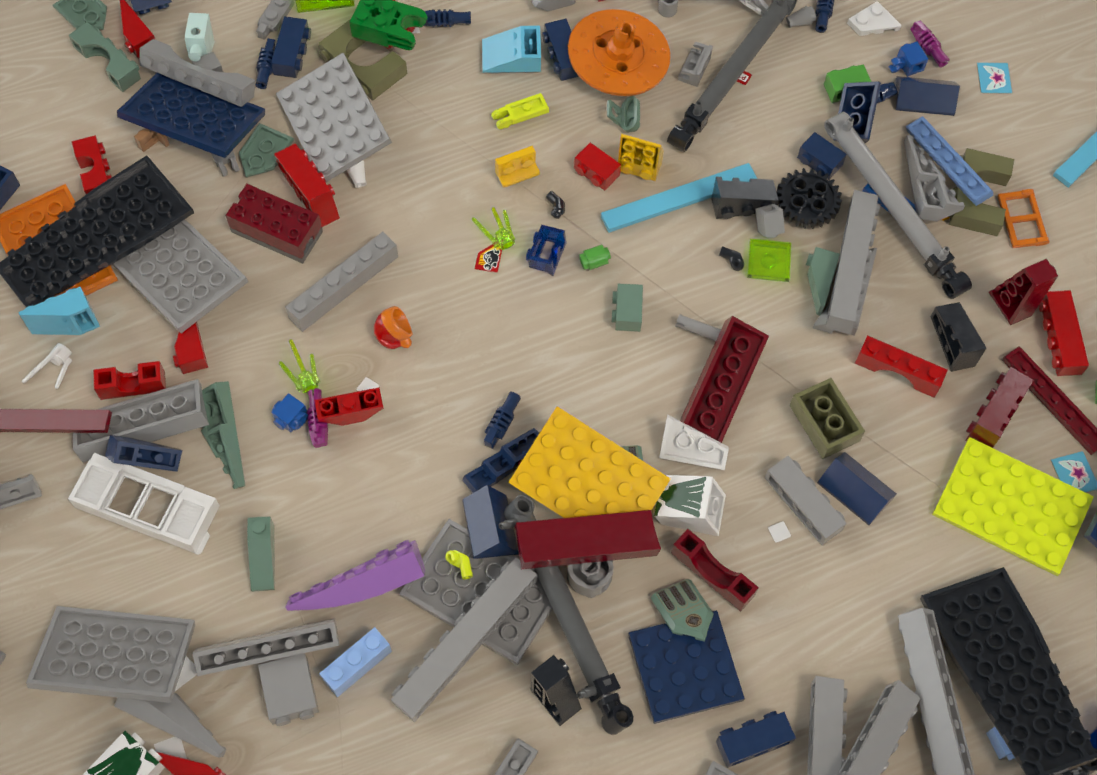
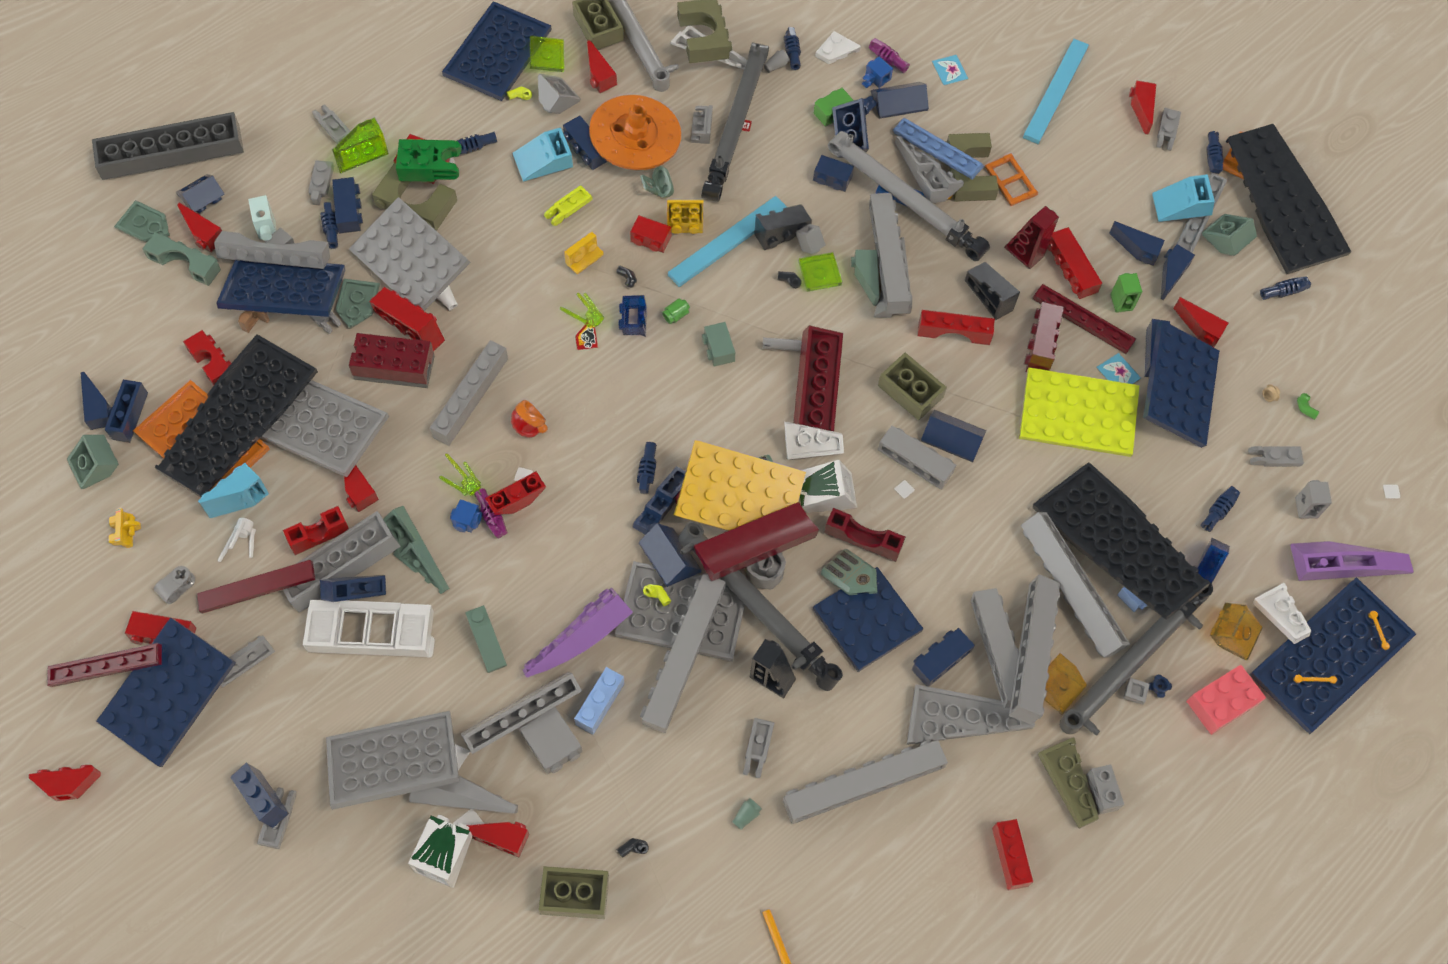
camera: 20 degrees left, 0 degrees up
(808, 198) = (835, 211): black gear -> none

